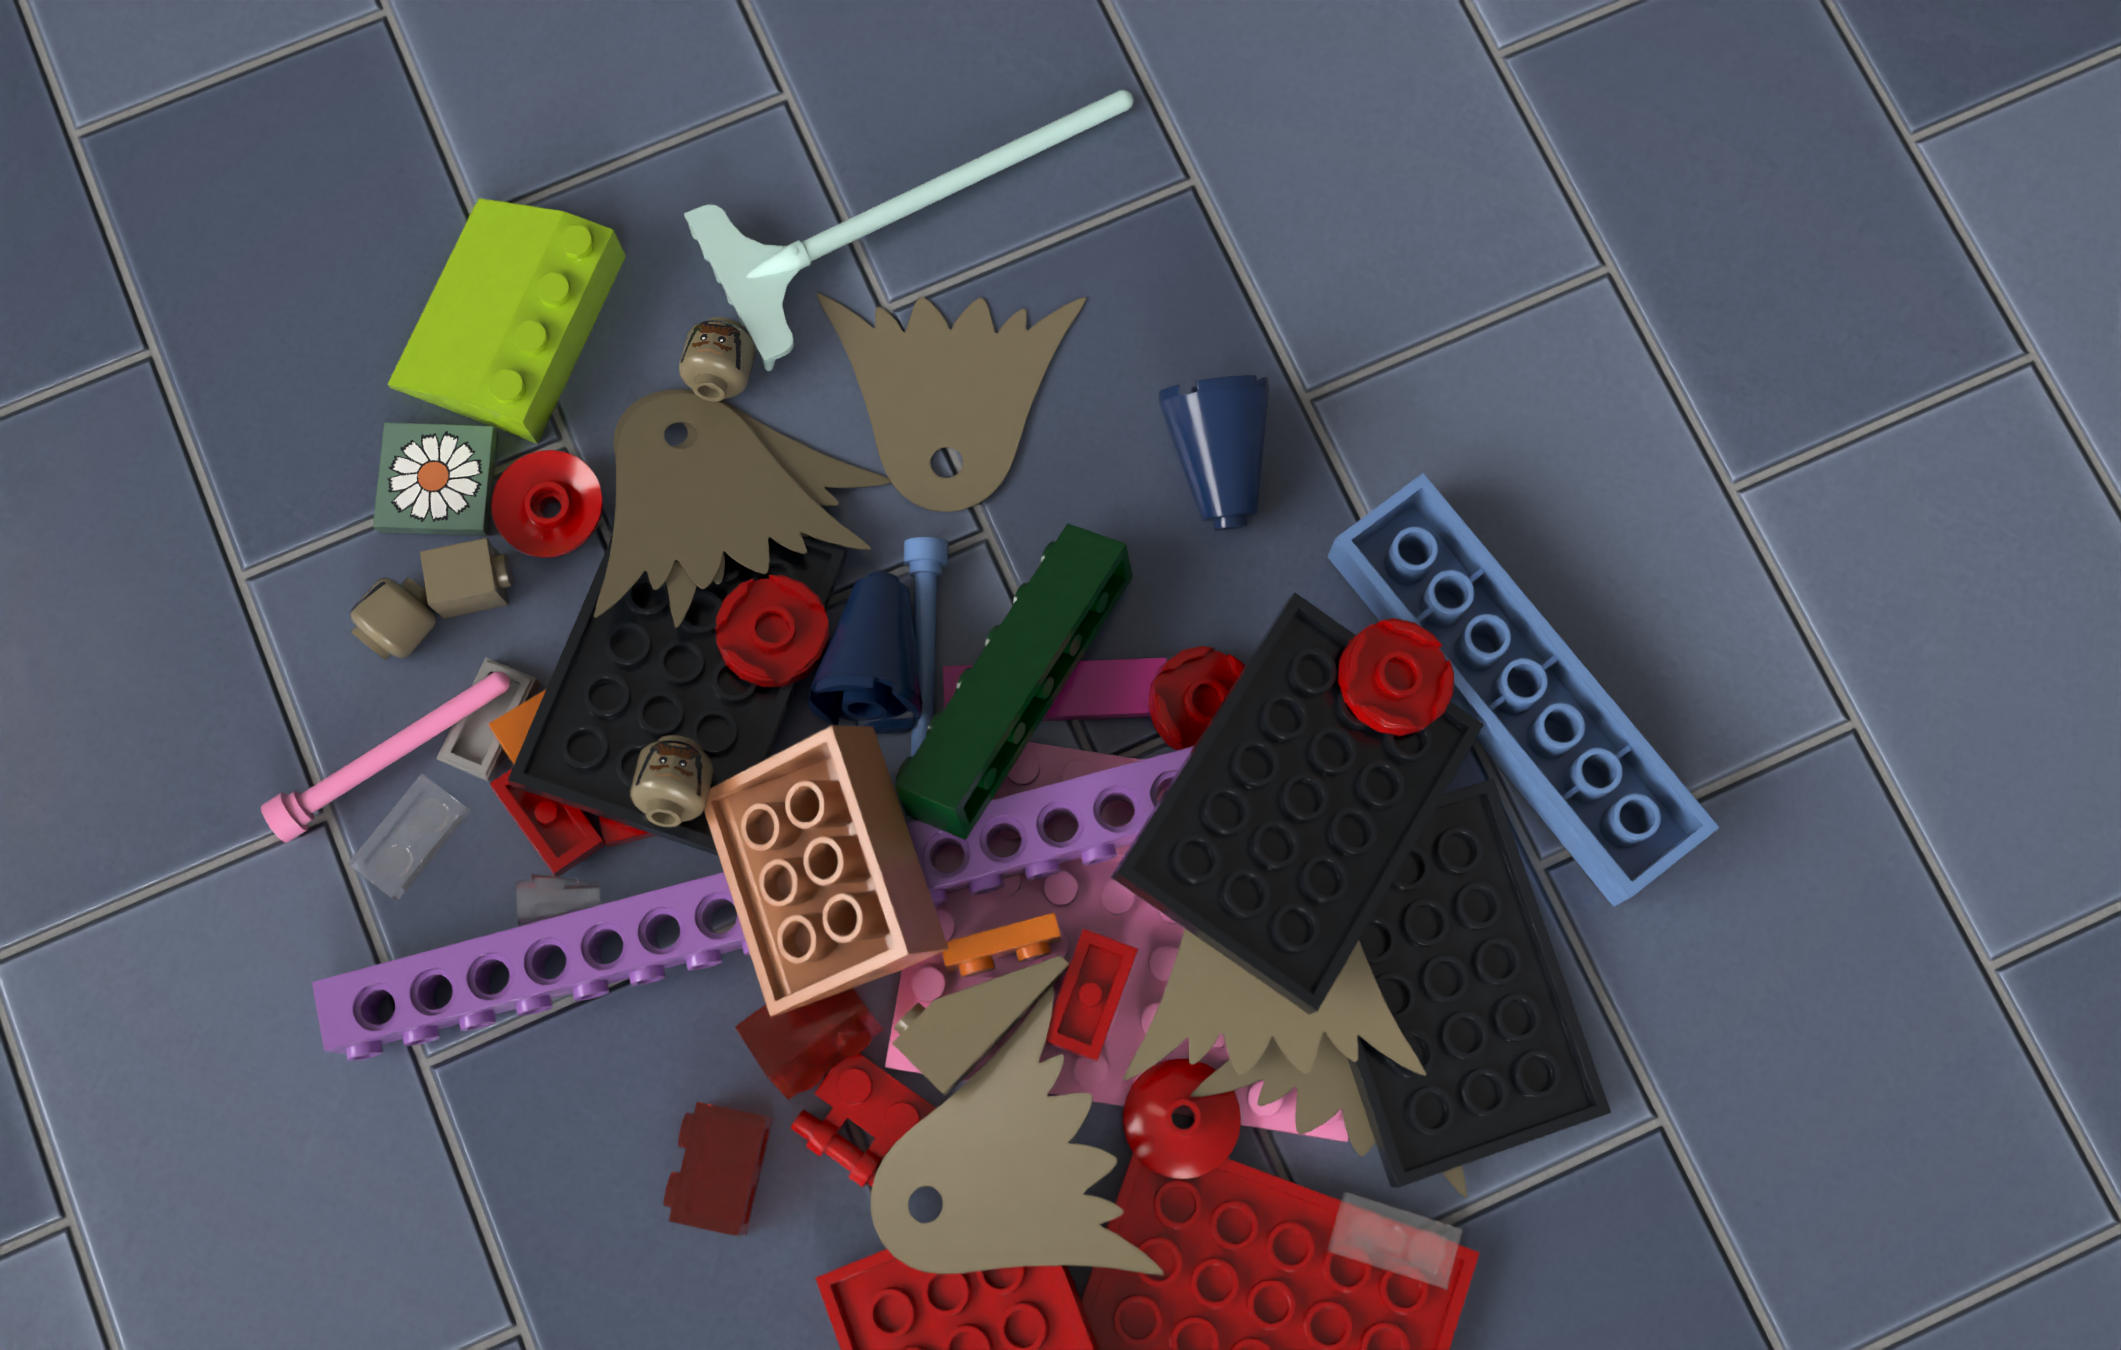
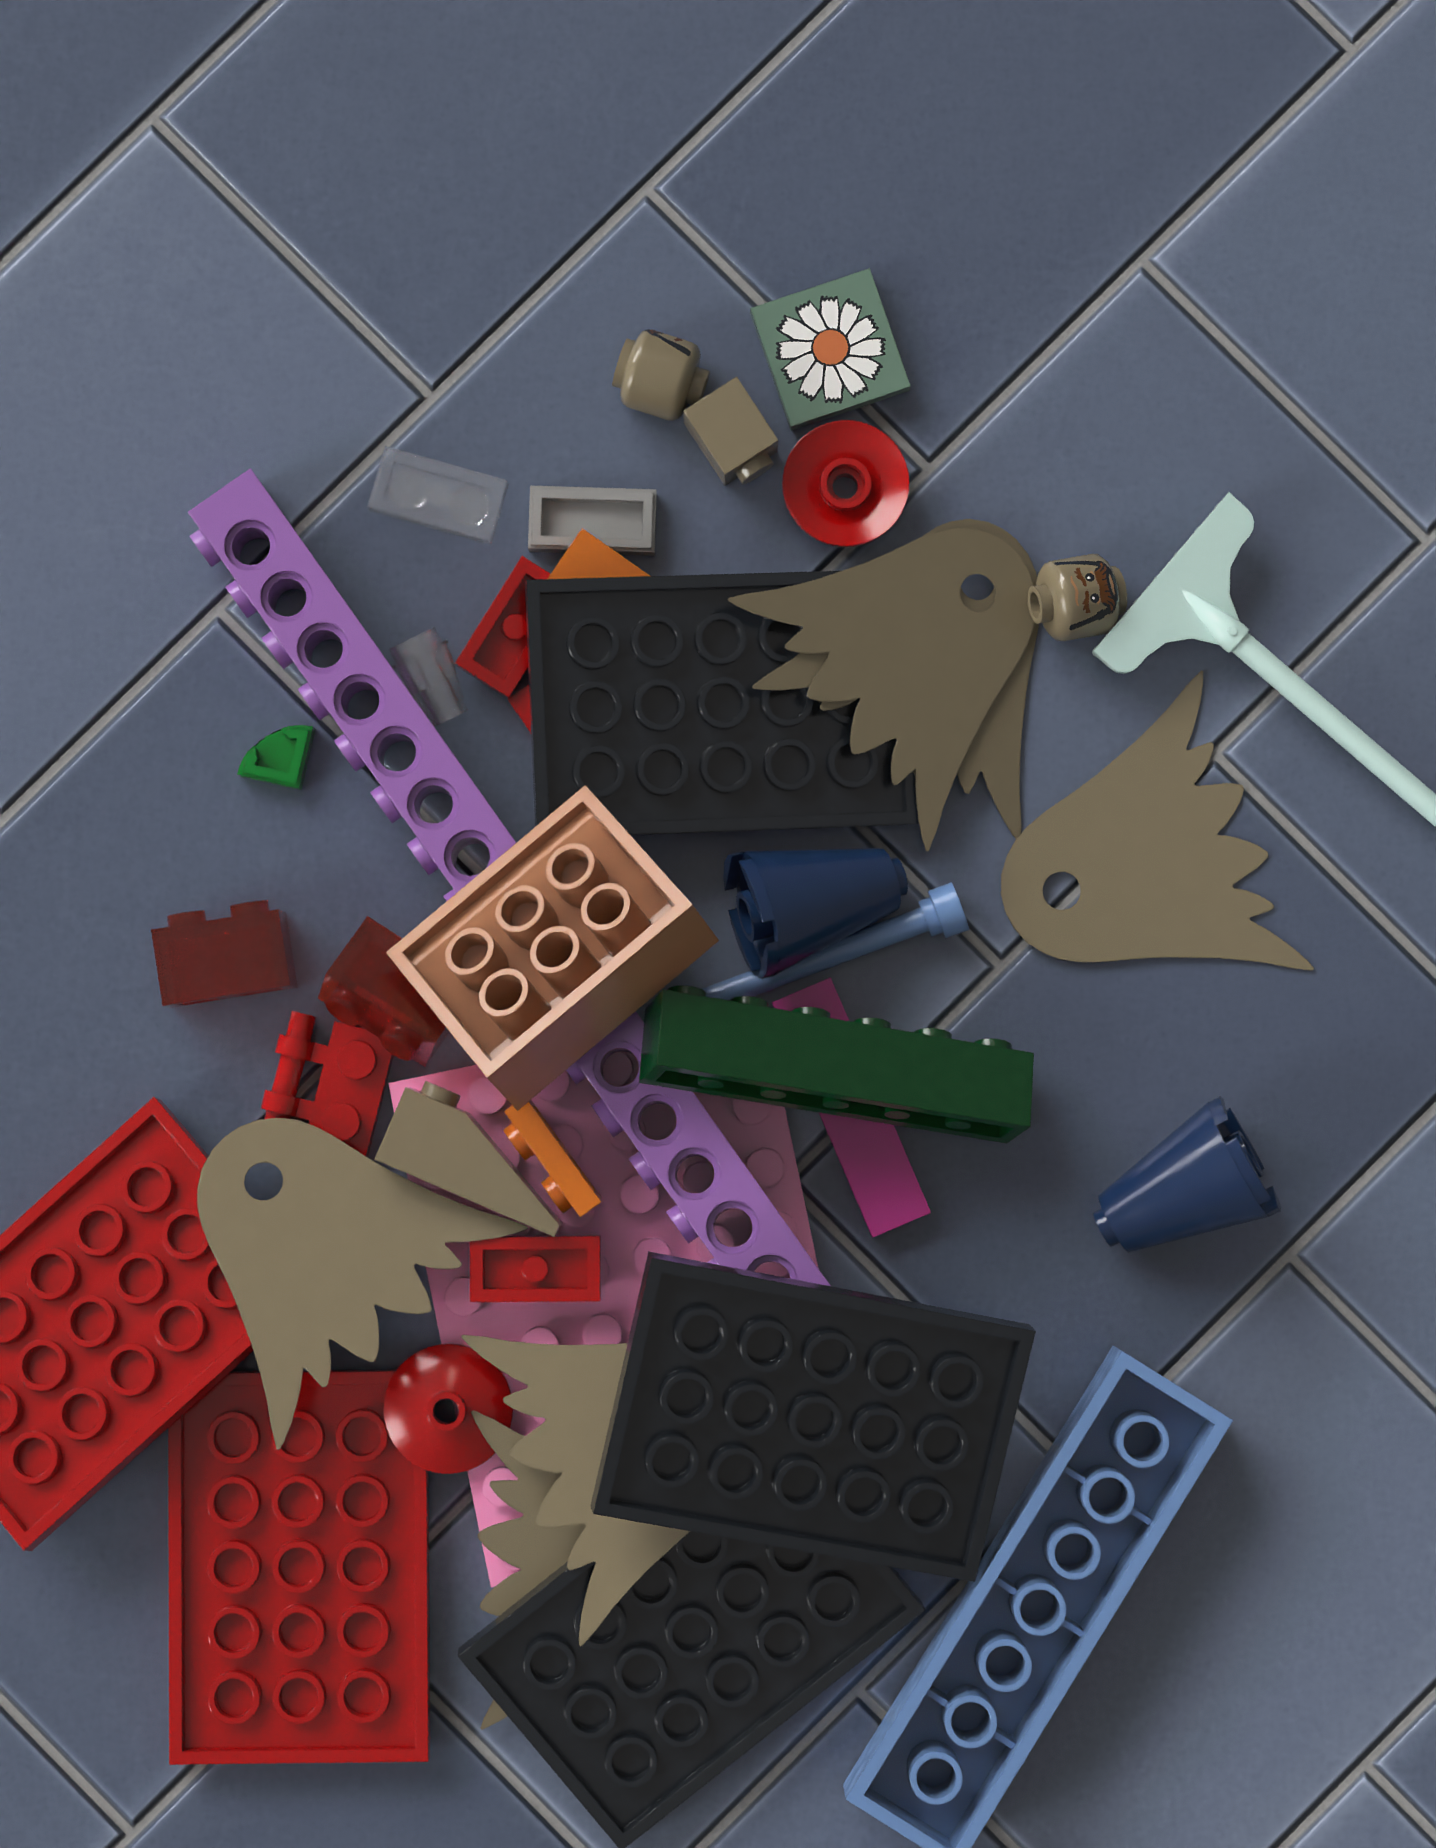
camera: 70 degrees right, 10 degrees up
(290, 813) = (417, 363): bright pink piece -> none
(510, 315) = (1043, 346): lime slope -> none
(571, 1057) = (280, 757): none -> green tile
(672, 780) = (586, 753): dark tan head -> none
(772, 631) = (793, 785): red tile -> none
(1190, 692) = (899, 1257): red tile -> none
(1395, 1240) = (406, 1670): clear plate -> none
(1396, 677) = (985, 1471): red tile -> none

